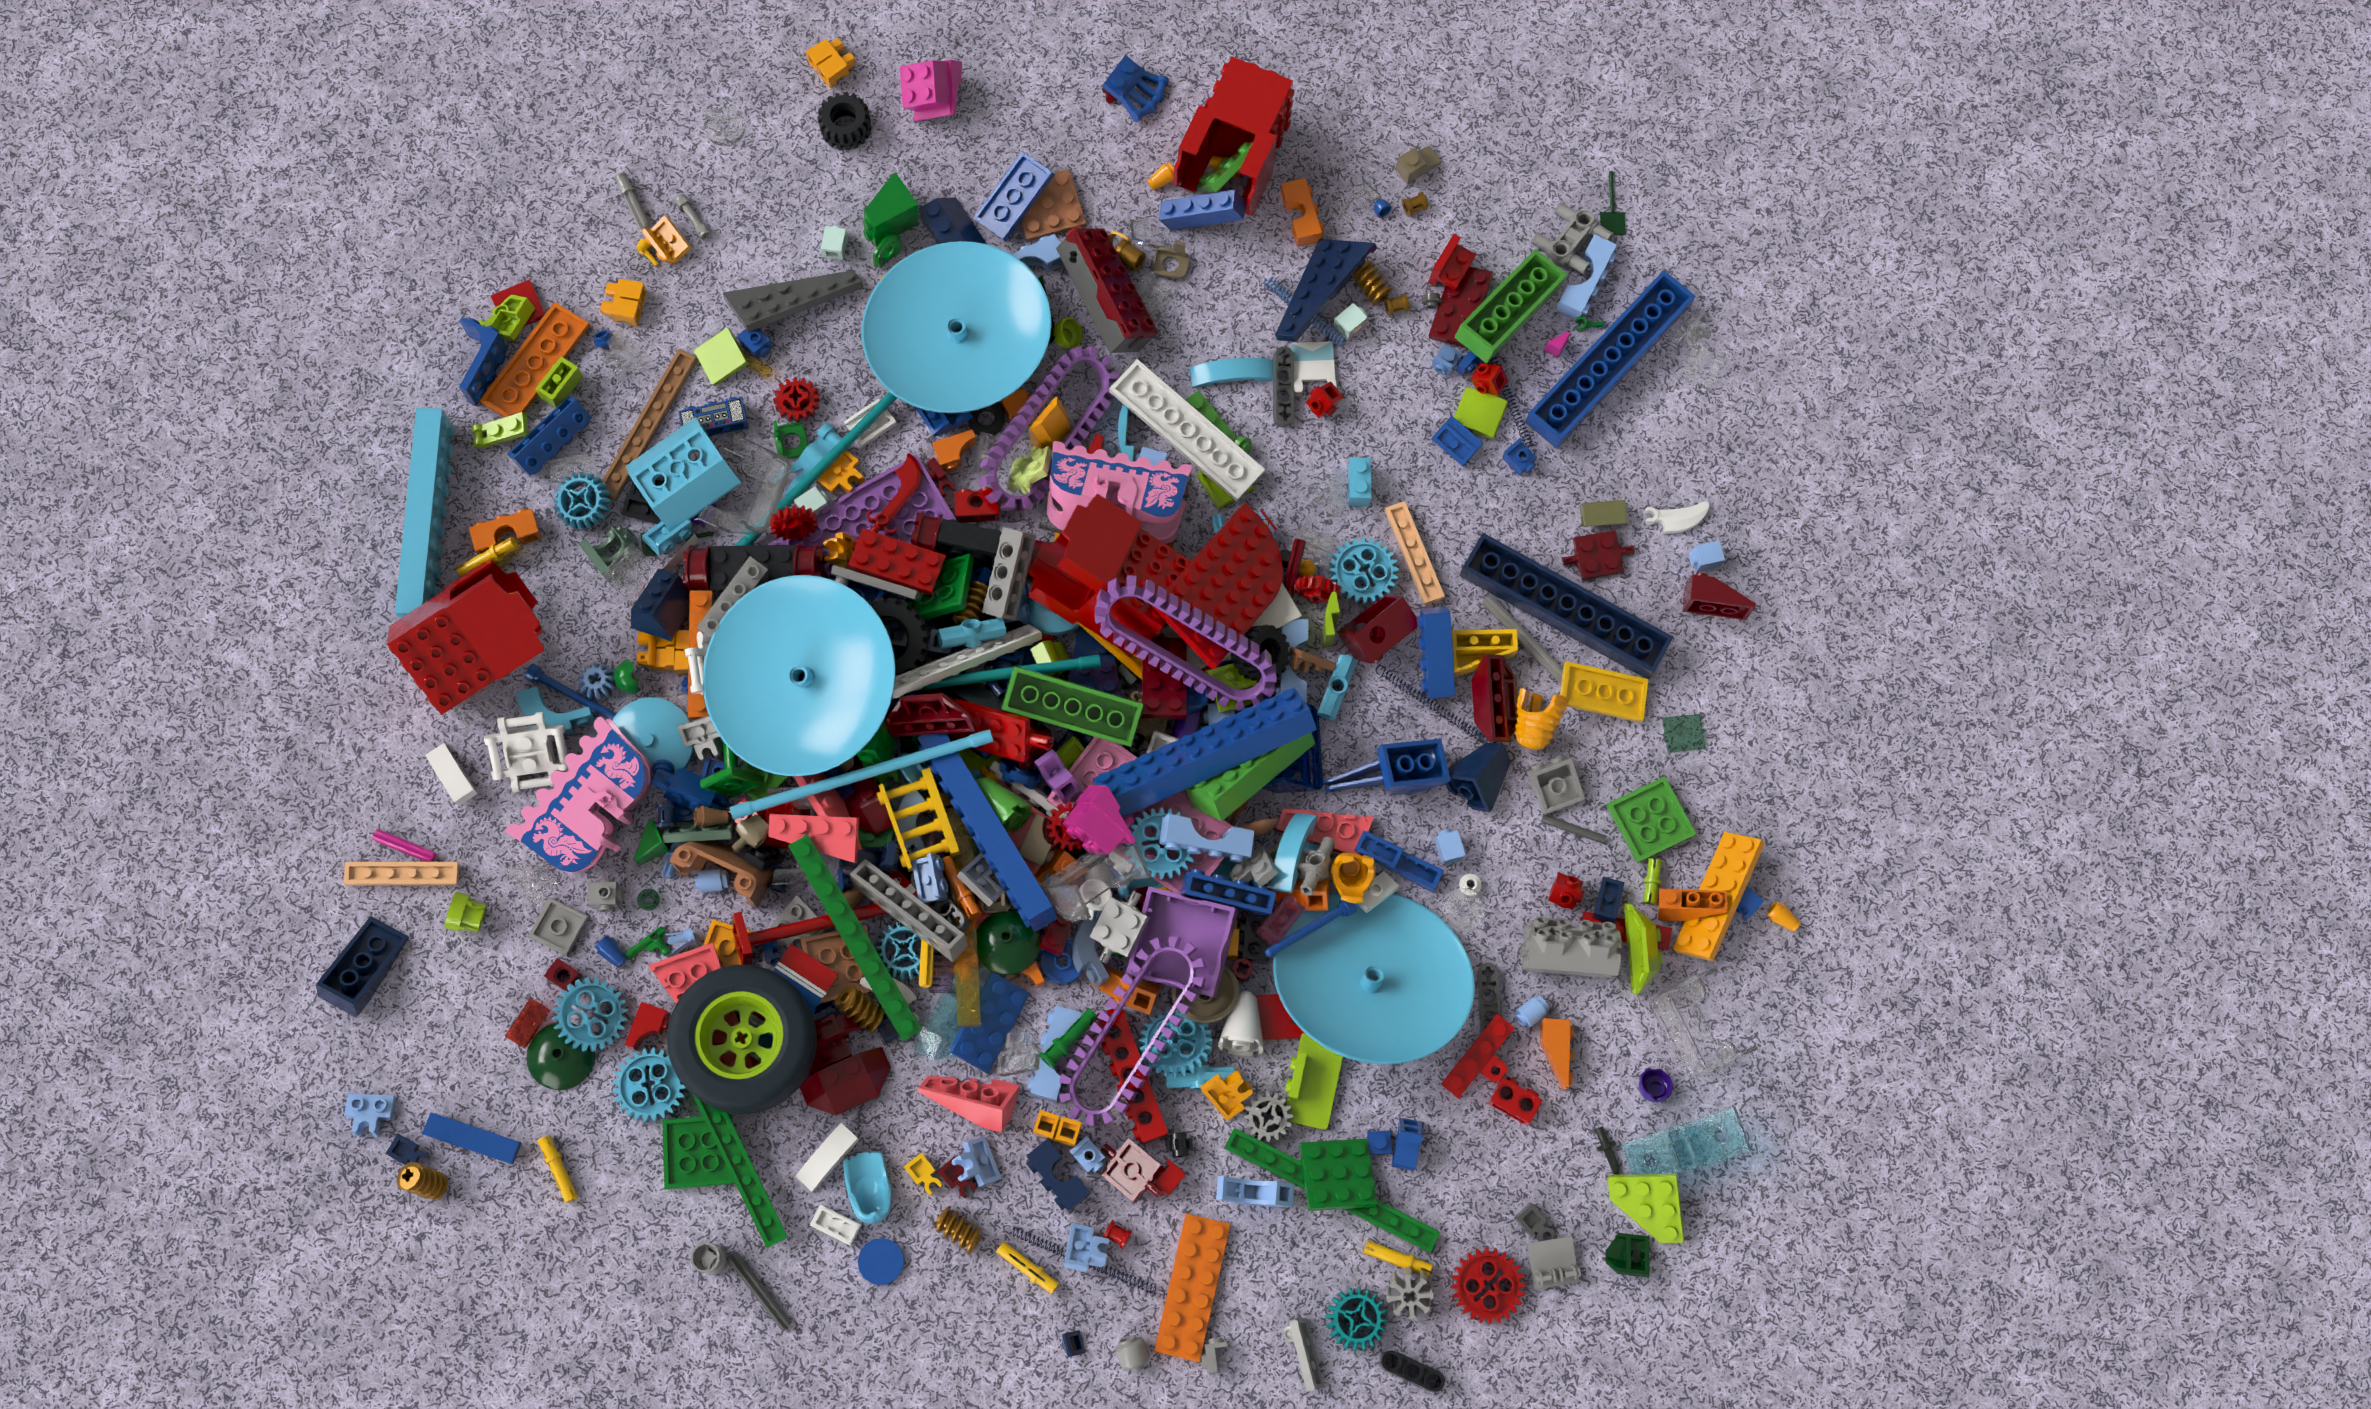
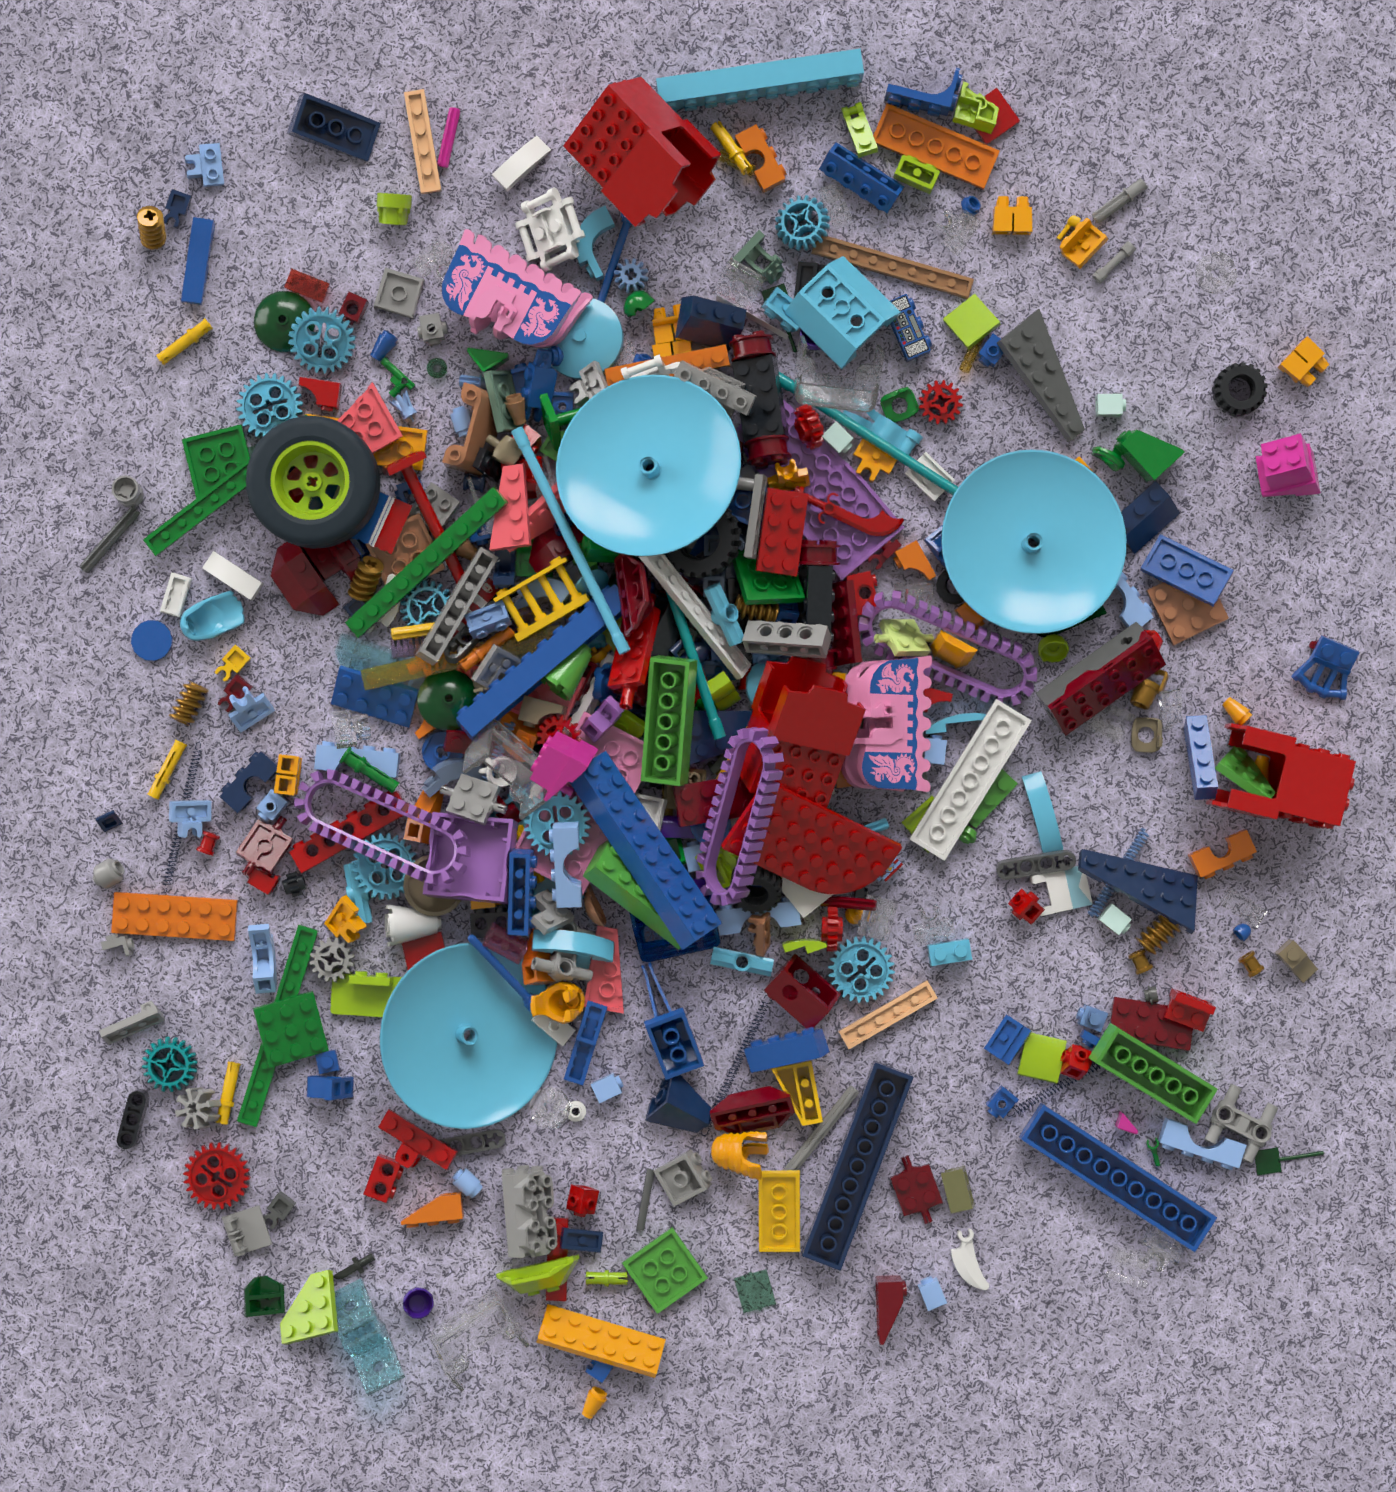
camera: 85 degrees right, 15 degrees up
(665, 815) = (510, 368): dark blue bush -> none
(980, 1103) = (303, 701): coral wedge -> none
(1023, 520) = (845, 625): none -> dark red plate
(1244, 963) = (454, 914): dark red bush -> none
(1690, 904) = (587, 1316): orange slope -> none

